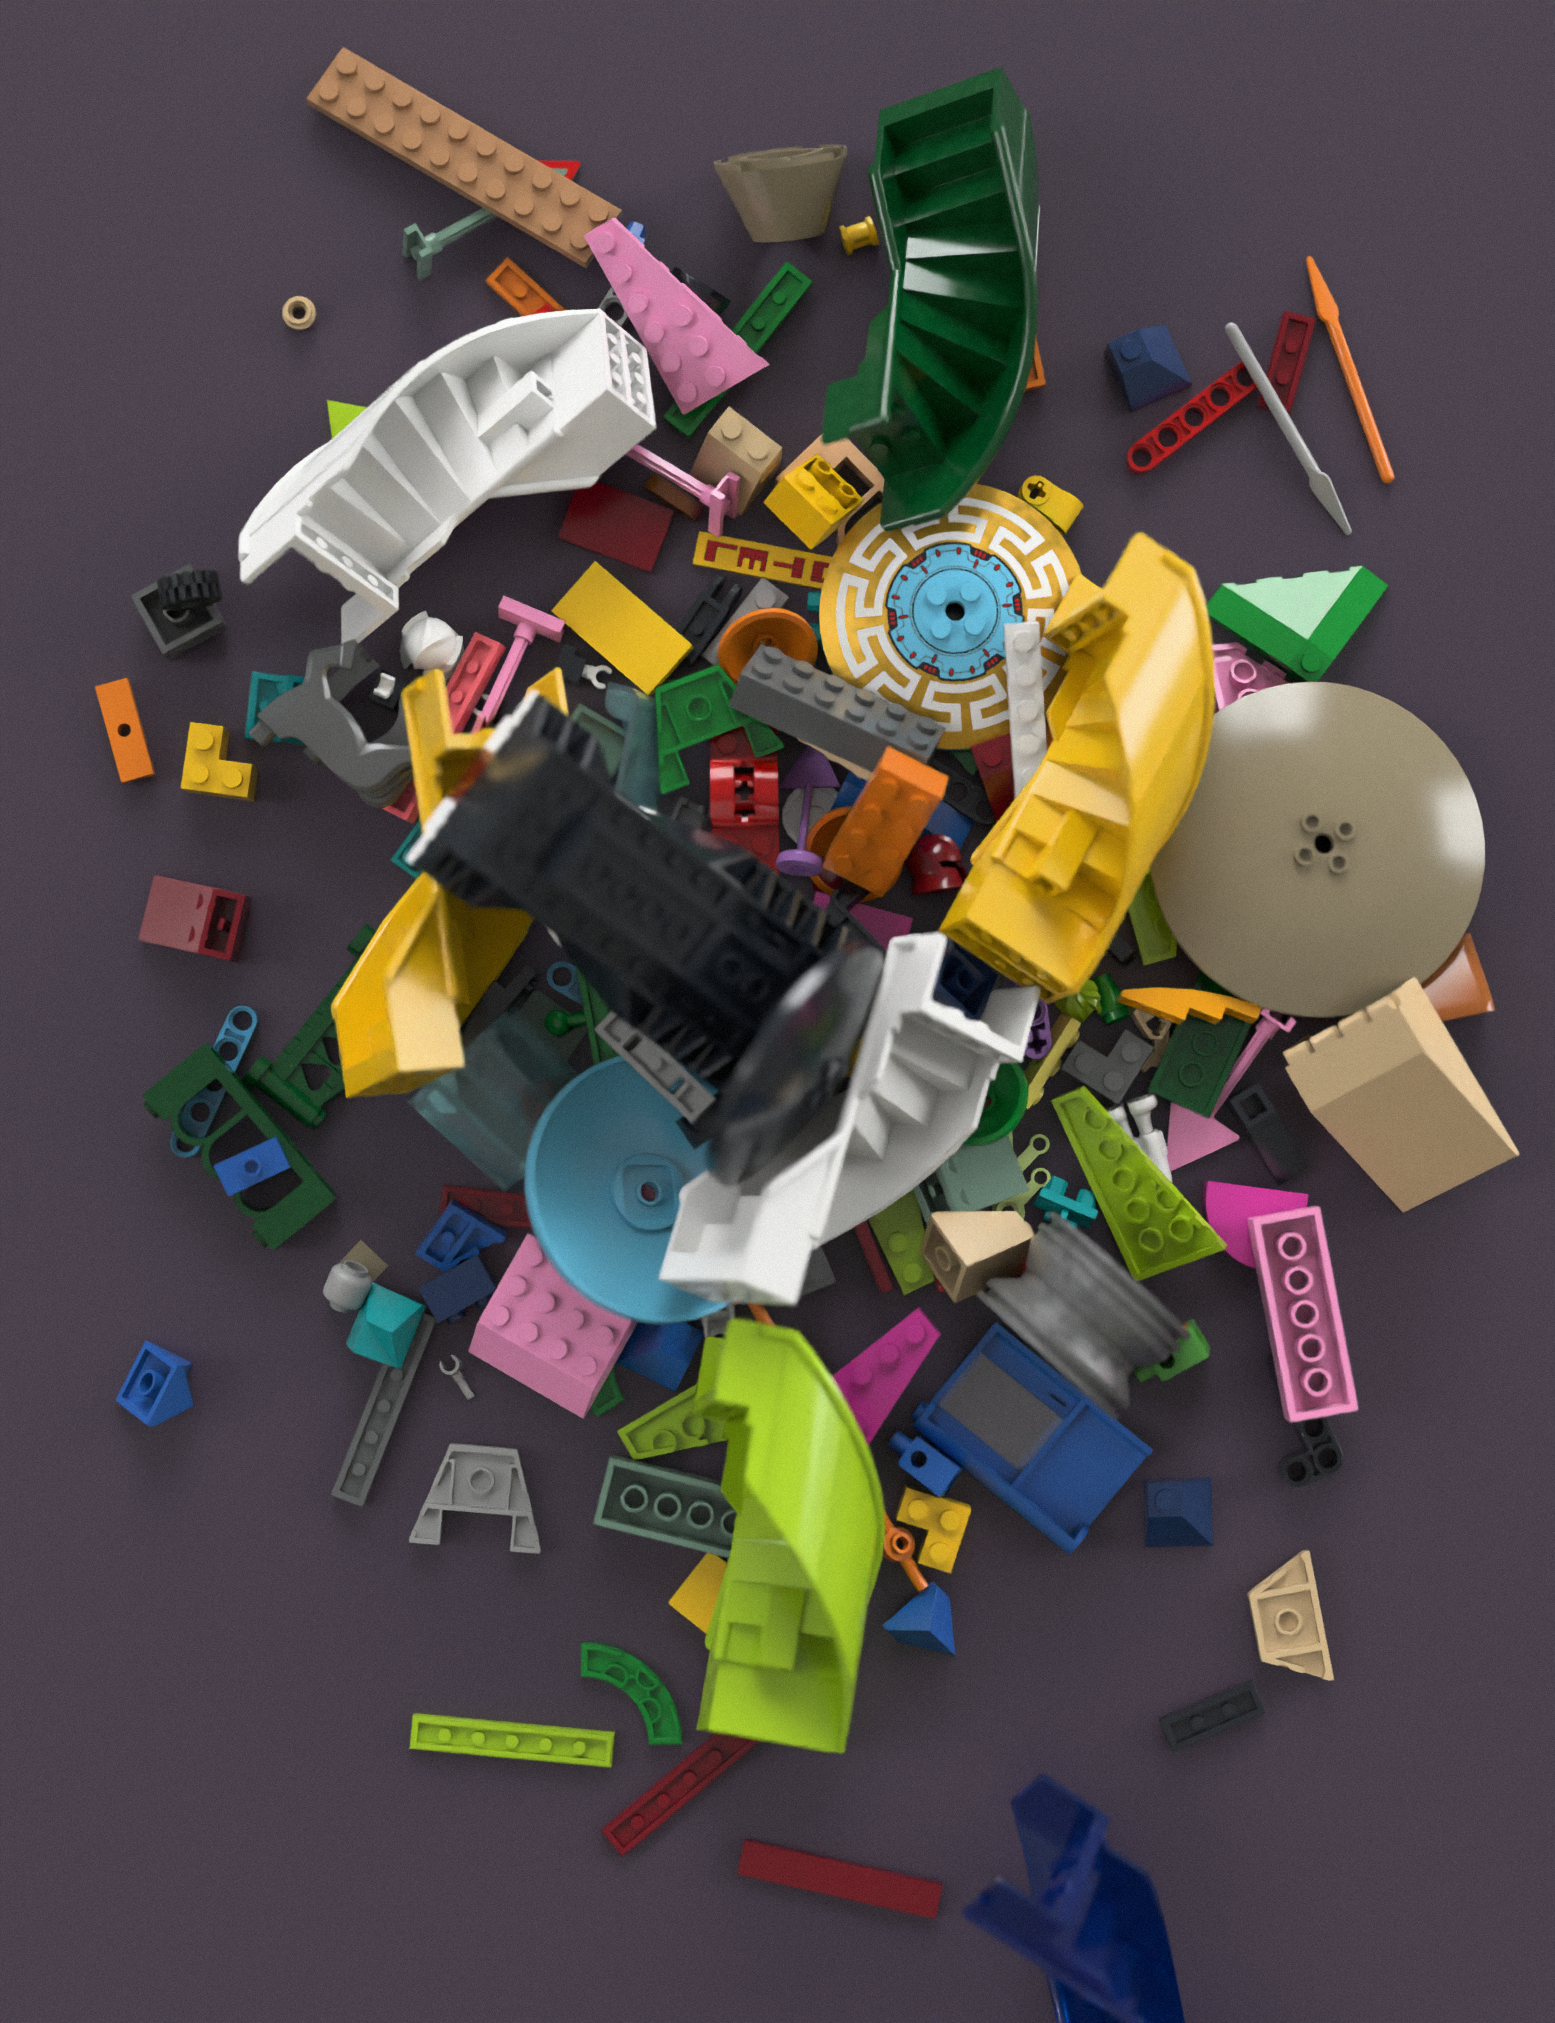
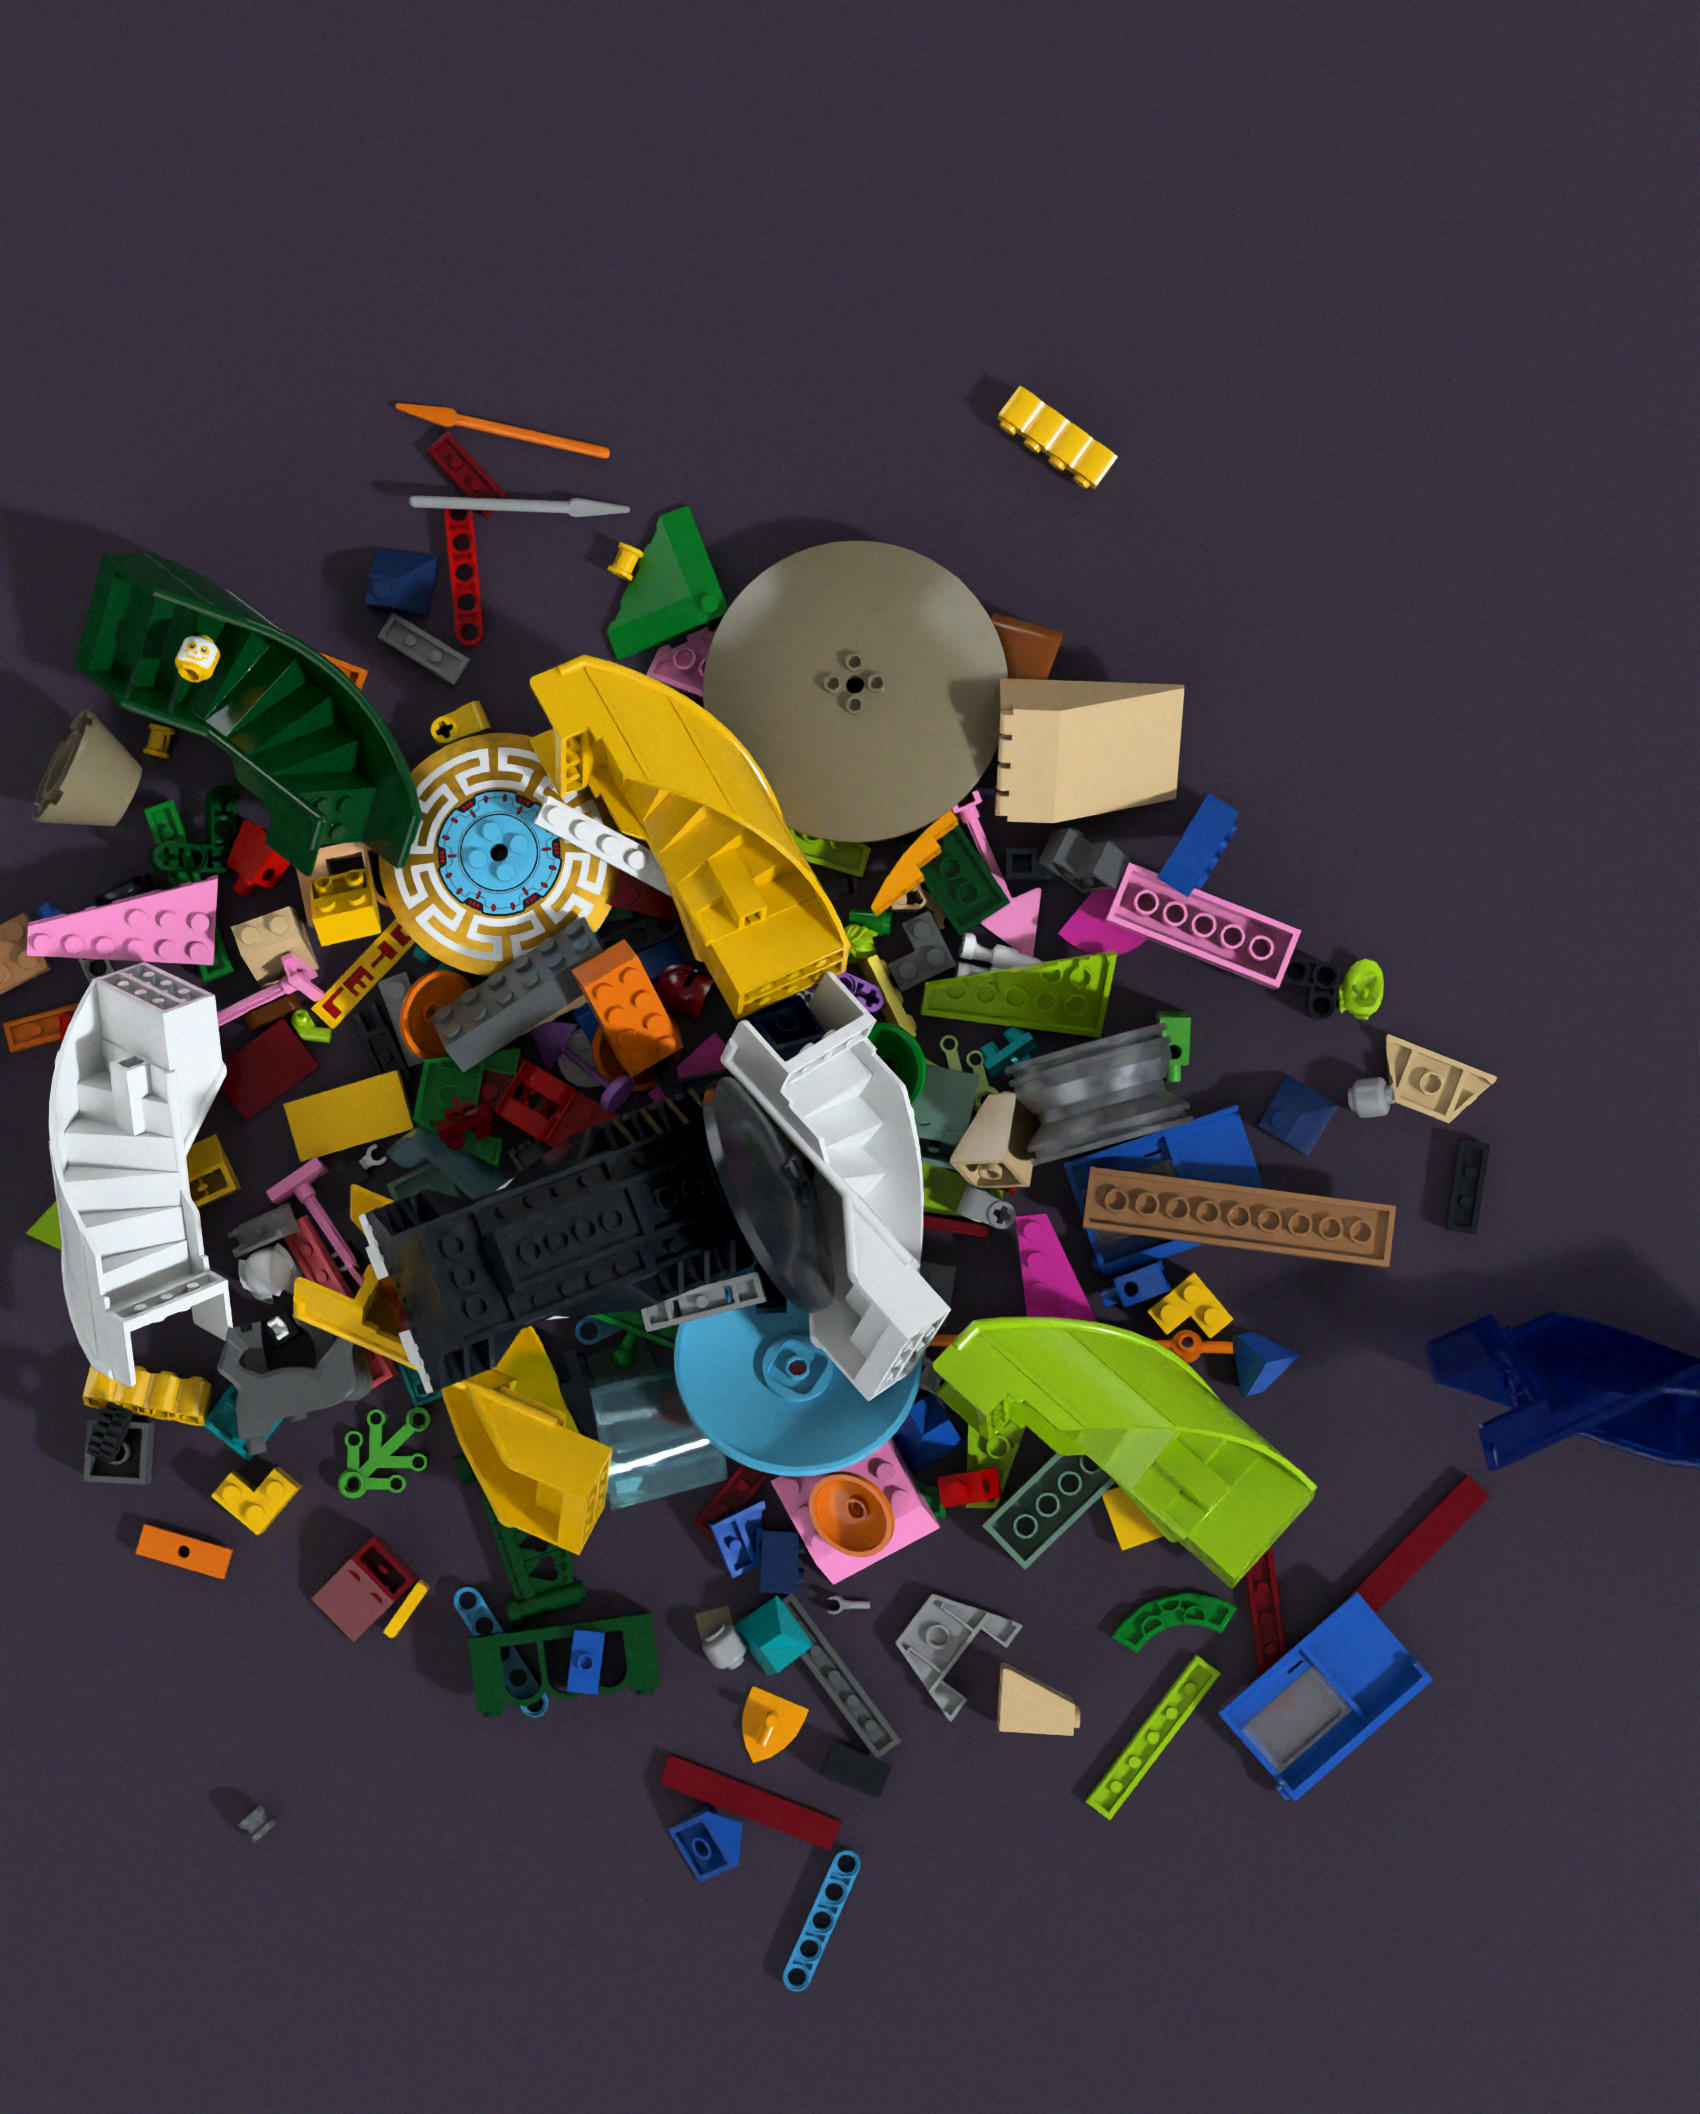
camera: 60 degrees left, 0 degrees up
(135, 1543) = (812, 1932): none -> dark azure beam
(199, 969) = (406, 1609): none -> yellow tile
(218, 1401) = (750, 1802): none -> dark red tile
(250, 611) = (153, 1395): none -> yellow brick
(302, 1373) = (769, 1723): none -> light orange shield
(308, 1482) = (856, 1770): none -> black hinge
(326, 856) = (381, 1456): none -> bright green plant
(467, 617) = (264, 1230): none -> light grey hinge
(471, 1611) = (1033, 1706): none -> tan slope
(488, 532) = (210, 1172): none -> yellow slope
(543, 1329) = (851, 1514): none -> orange dish
(637, 1422) = (968, 1487): none -> red torso
(650, 1888) = (1330, 1701): none -> blue piece
(678, 540) = (307, 1029): none -> lime arm
(686, 733) = (462, 1118): none -> dark red hips
(796, 345) = (214, 844): none -> dark green beam
(803, 392) = (254, 860): none -> red torso
(906, 1269) = (981, 1207): none -> light grey piece
(959, 214) = (197, 658): none -> head
(1050, 1519) = (1239, 1217): none -> medium nougat plate
(1098, 425) = (423, 649): none -> light grey tile
(1239, 1572) = (1371, 1097): none -> light grey head
(1289, 1163) = (1083, 863): none -> dark grey brick
(1299, 560) = (625, 561): none -> yellow bush
(1335, 1500) = (1361, 989): none -> lime hat
(1375, 1263) = (1198, 845): none -> blue brick

